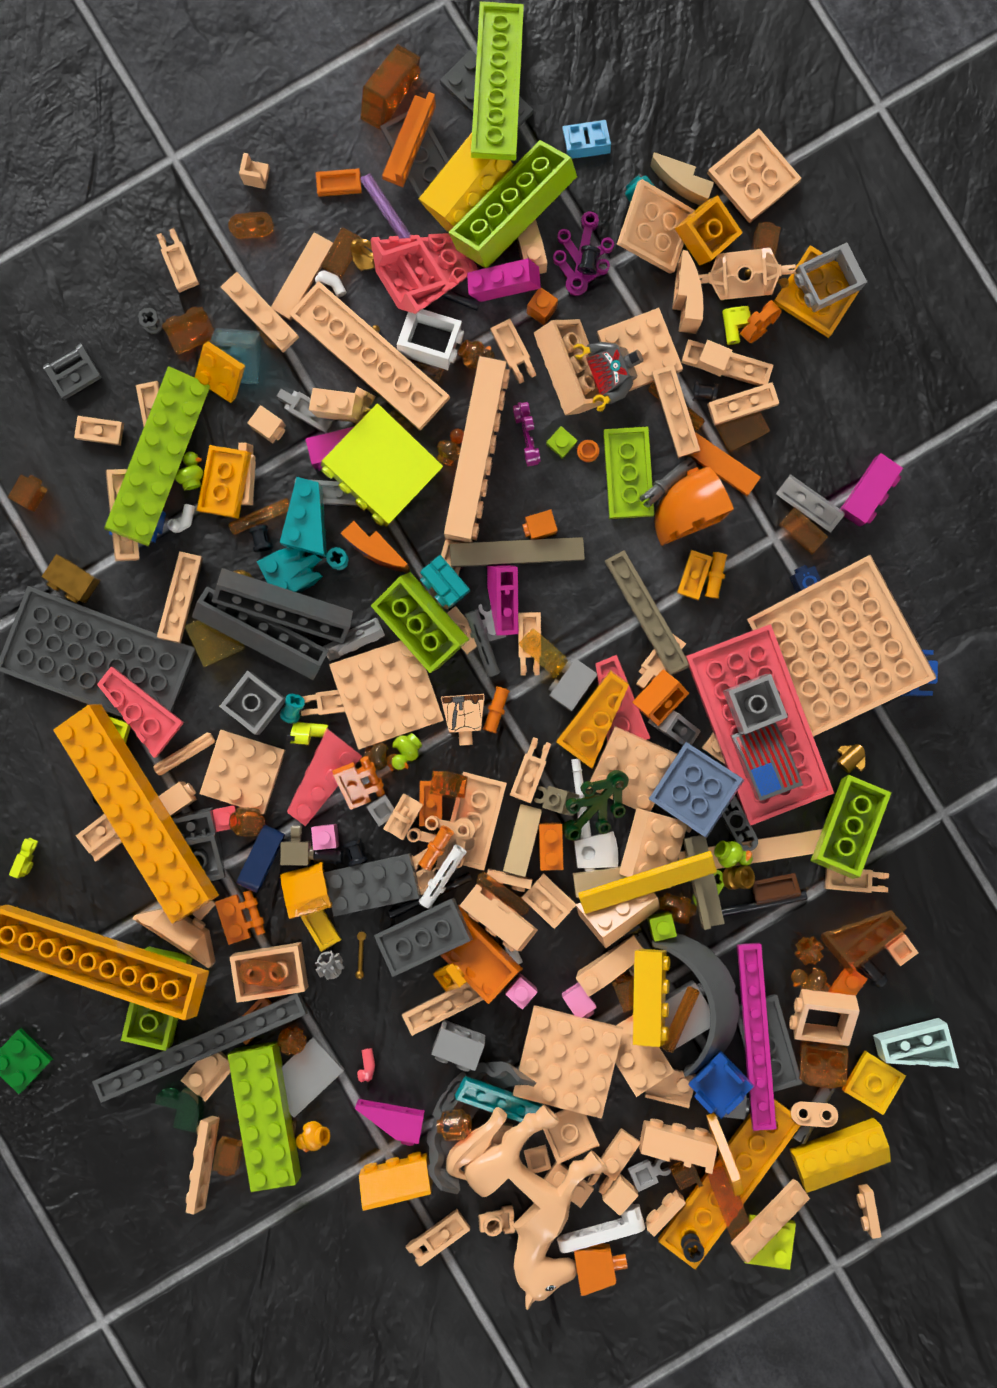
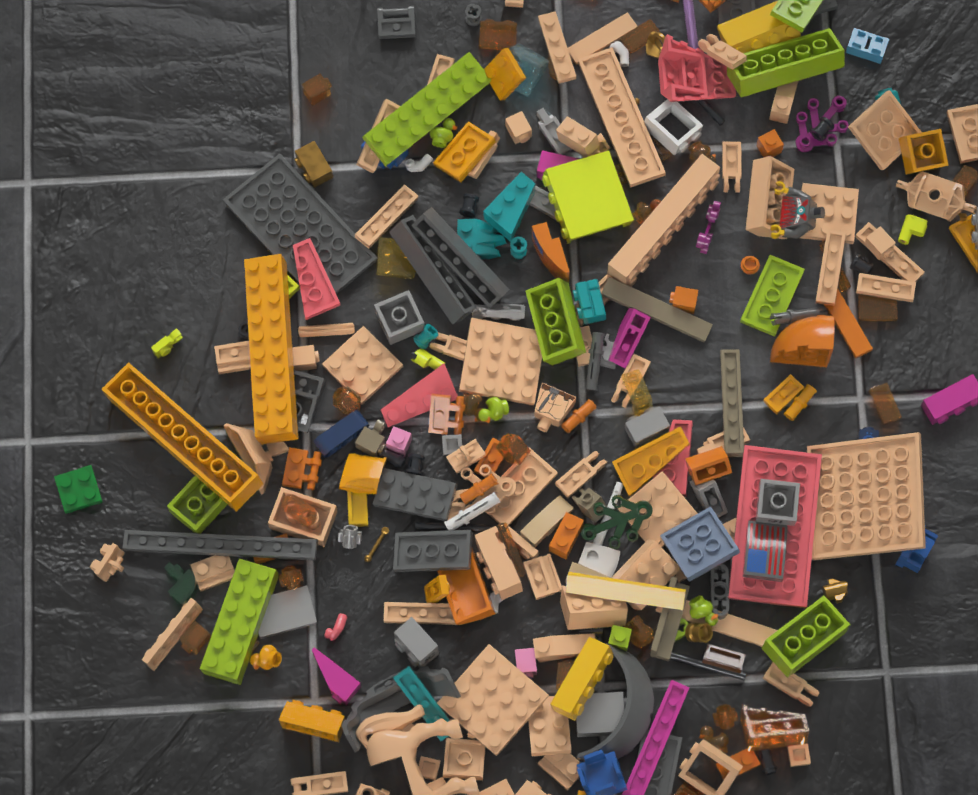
camera: 30 degrees right, 15 degrees down
(96, 1124) = (109, 563): none -> light nougat hips
(99, 430) = (392, 72): light nougat plate -> none
(222, 817) = (328, 391): coral plate -> none
(259, 516) = (478, 190): clear orange axle -> none
(440, 227) = (722, 52): none -> light nougat hinge
(454, 1125) = (381, 699): clear orange head -> none
(504, 280) = (749, 111): dark pink brick -> none
(521, 991) = (485, 631): bright pink brick -> none
(561, 442) = (733, 249): lime plate -> none
(681, 178) = (924, 106): tan slope -> none
(681, 1018) = (597, 710): clear orange axle -> none
(688, 295) = (882, 190): light nougat slope -> none
(760, 321) = (929, 234): orange plate -> none
(810, 503) = (900, 386): light grey plate -> none

